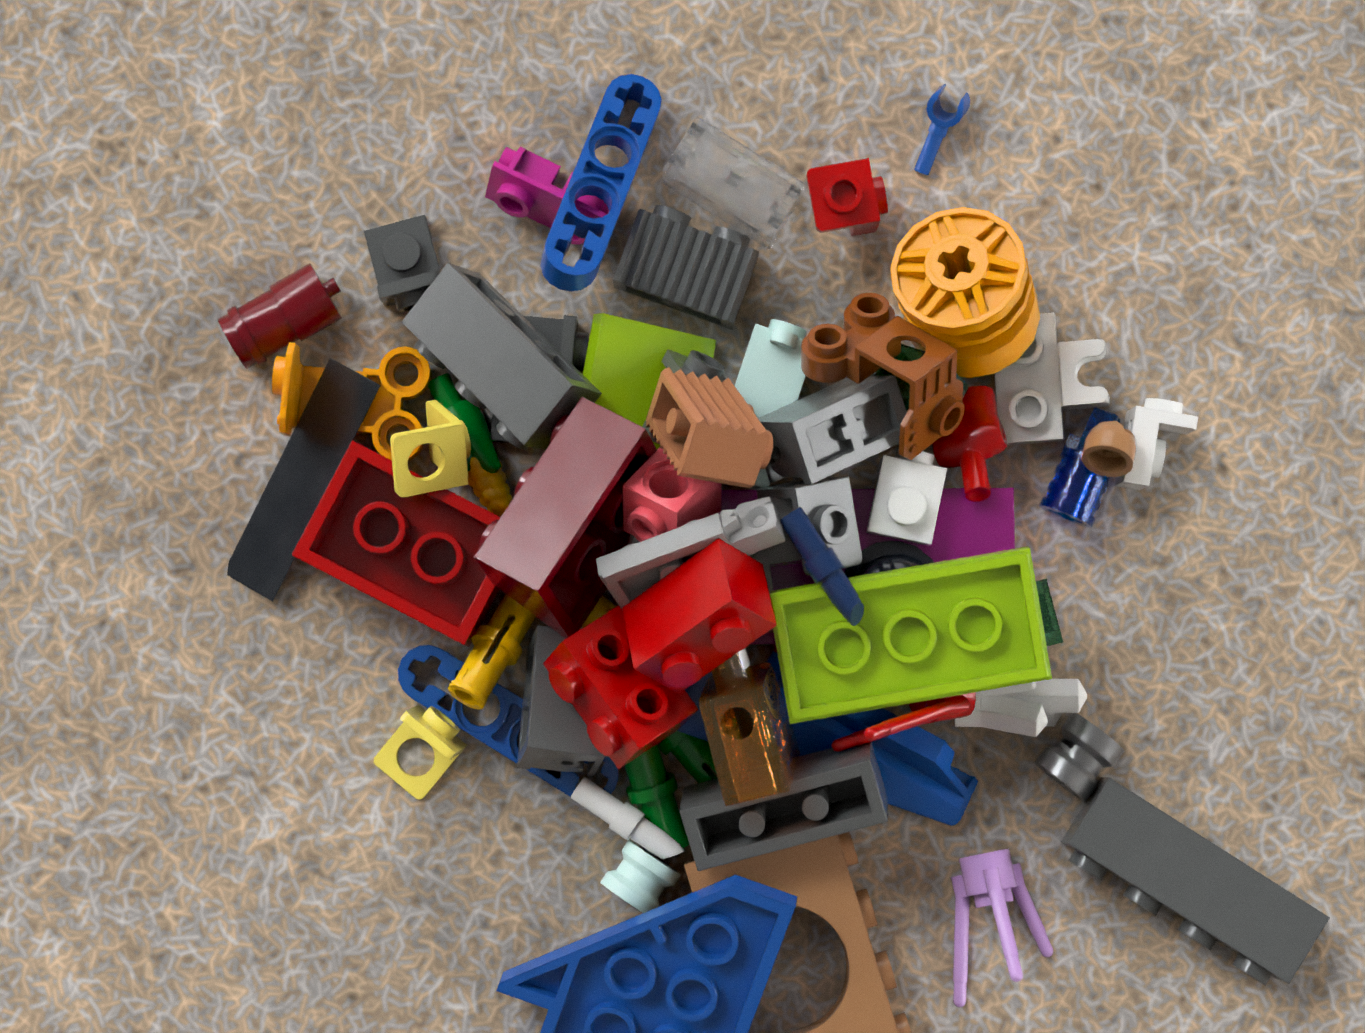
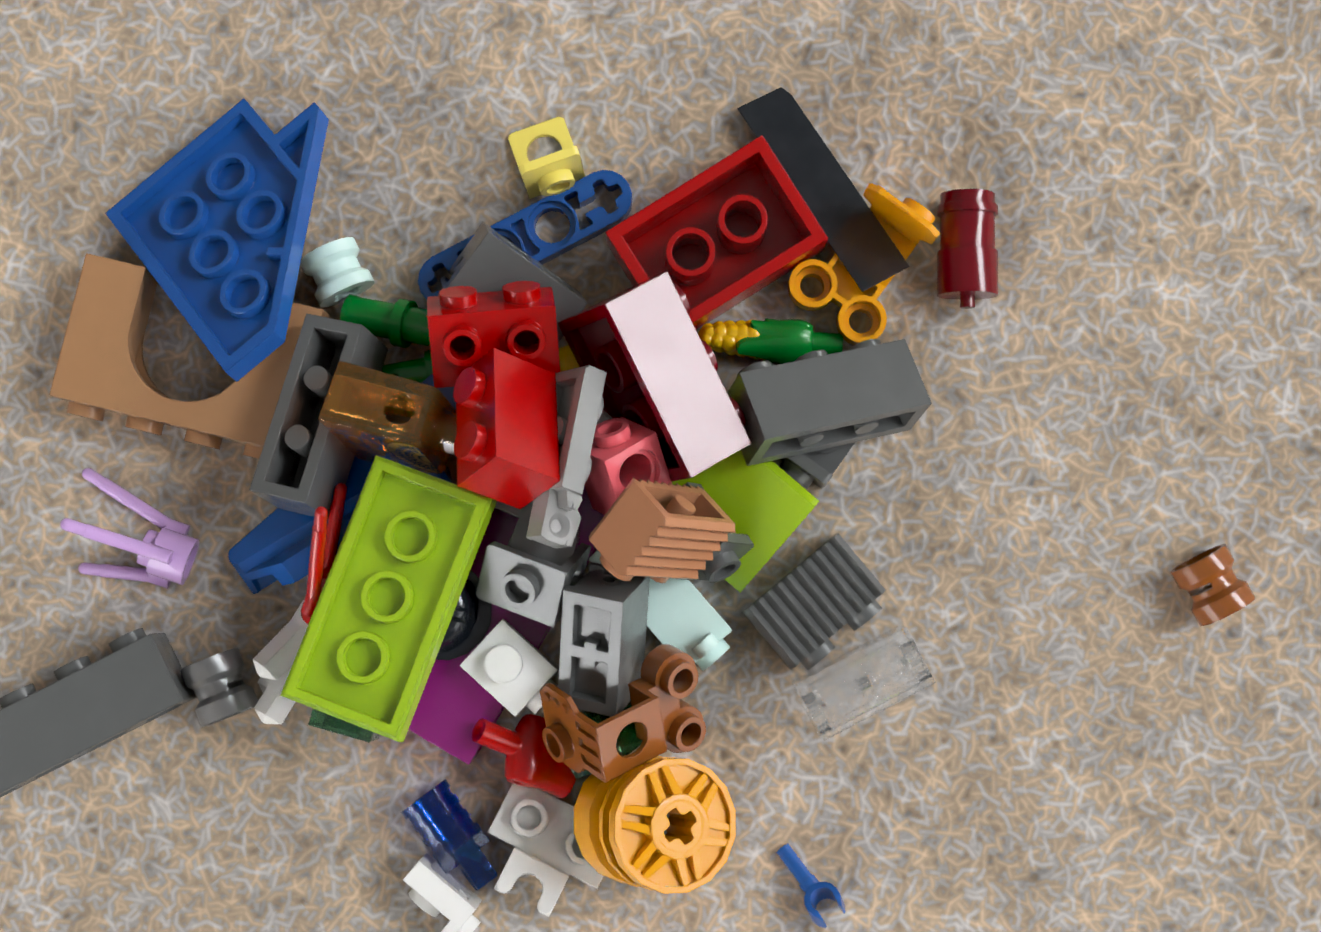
camera: 125 degrees right, 0 degrees up
(403, 261) = (956, 373): dark grey bracket -> none
(447, 449) = (784, 317): light yellow bracket -> none
(475, 677) = (573, 228): yellow pin -> none
(524, 188) = (959, 508): dark pink hinge -> none
(599, 180) = (930, 568): blue beam -> none
(625, 820) = (388, 285): white piece -> none
(823, 565) = (486, 557): dark blue piece -> none
(847, 197) = (794, 770): red bracket -> none
(1109, 449) = (451, 864): medium nougat hinge -> none

